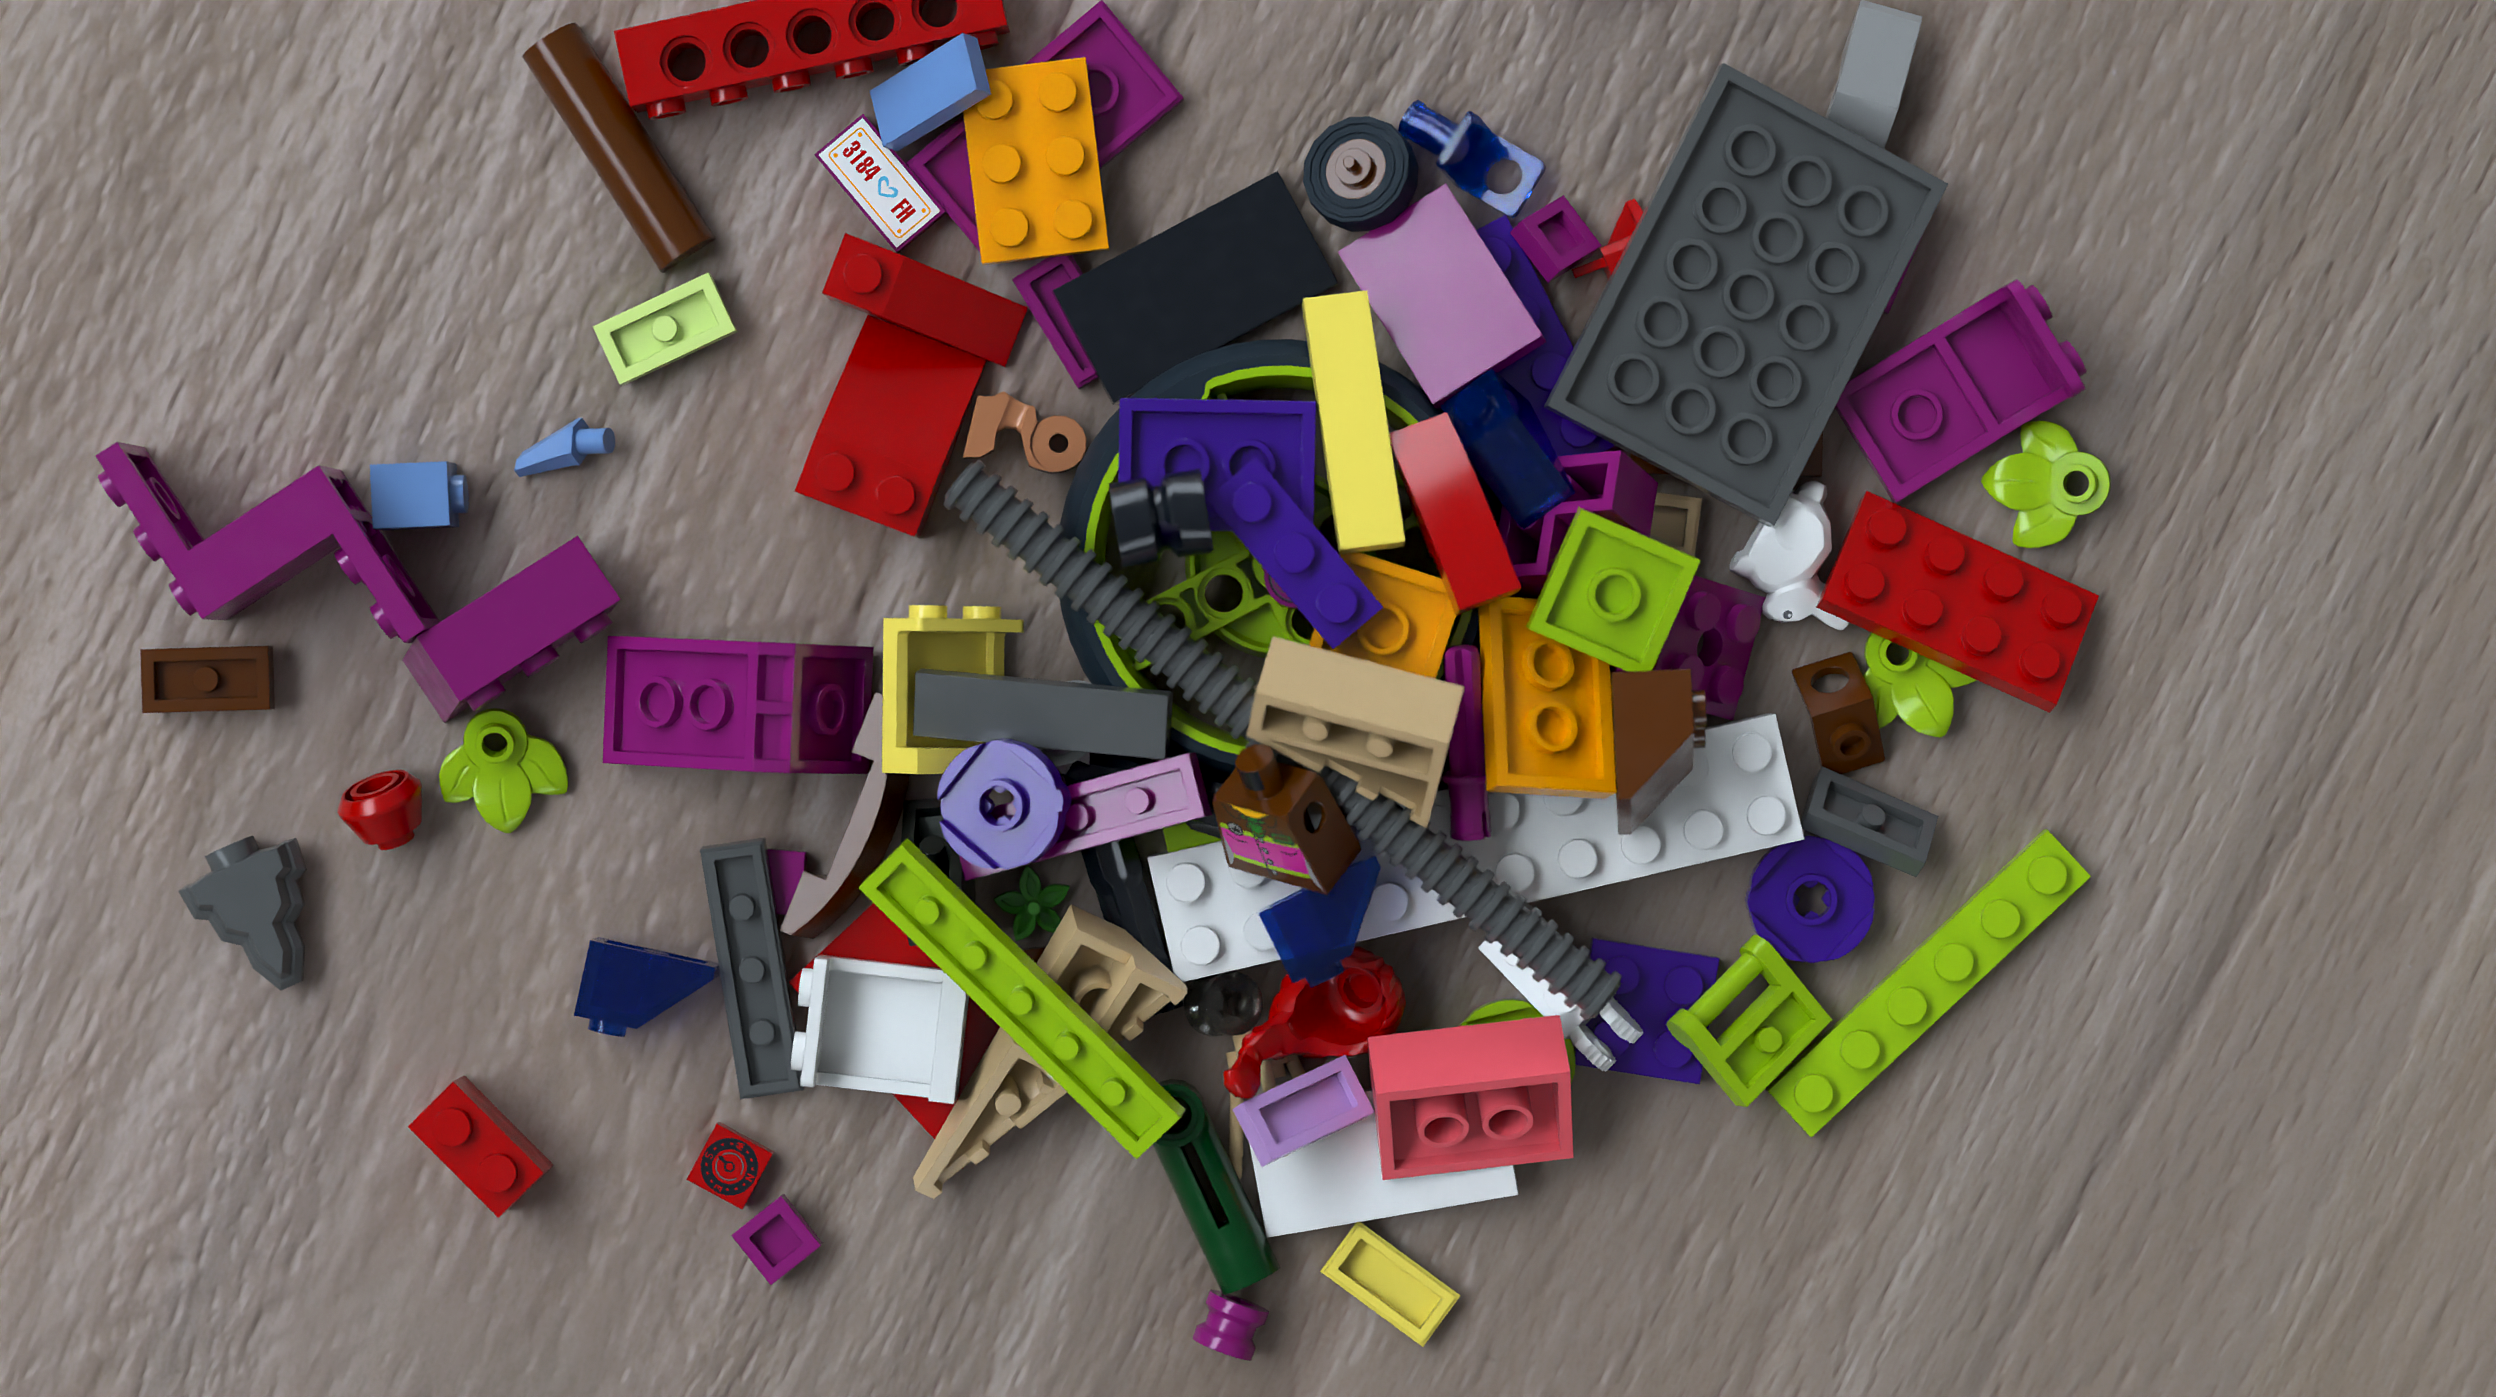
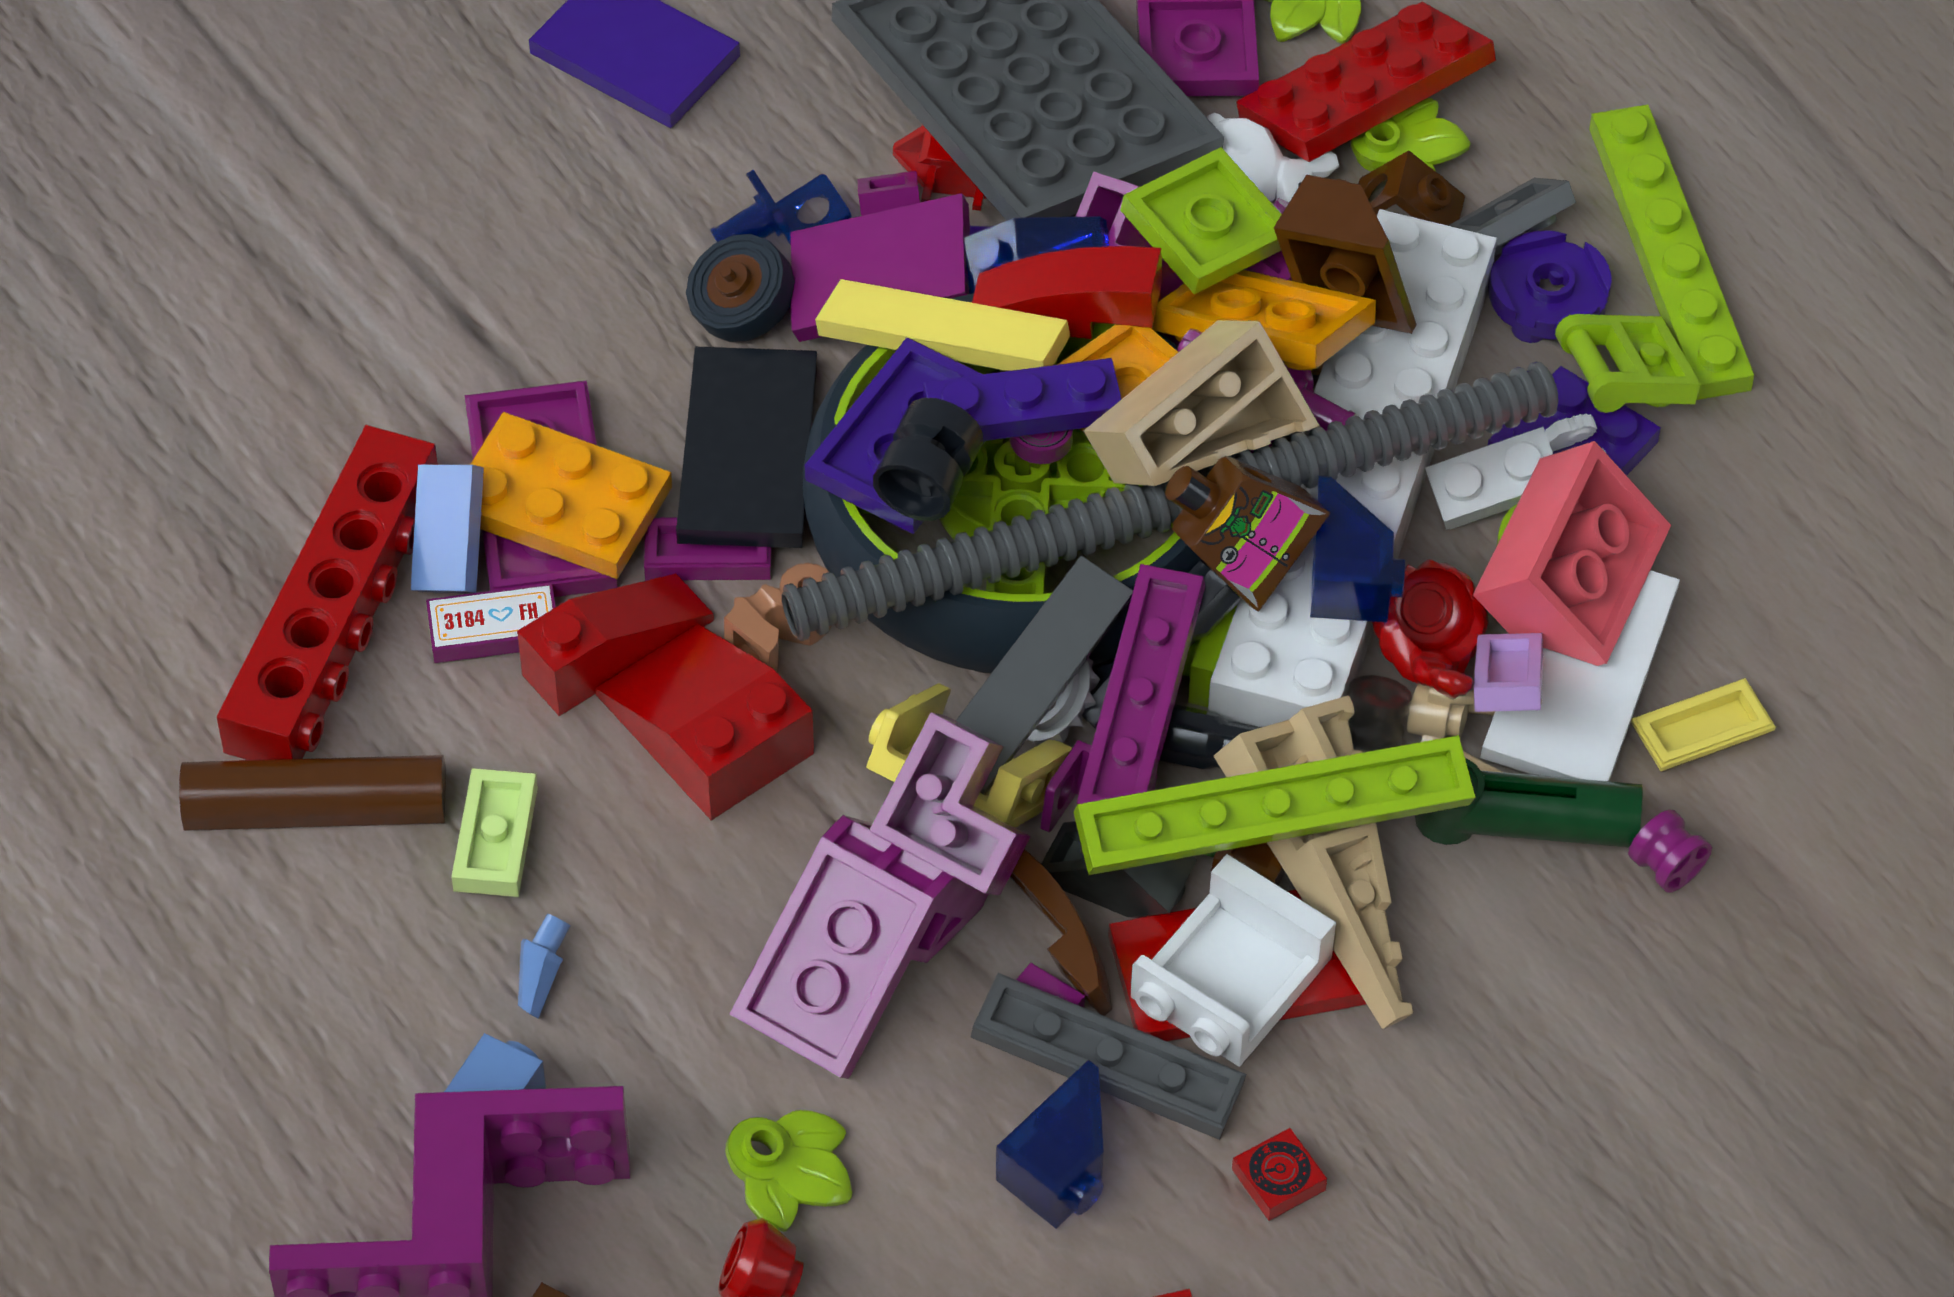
camera: 60 degrees left, 35 degrees down
(511, 630) = (670, 1082): magenta wedge -> none
(777, 1239) = (1372, 1164): magenta plate -> none
(838, 733) = (934, 811): none -> brick
(967, 808) = (1077, 765): plate -> none

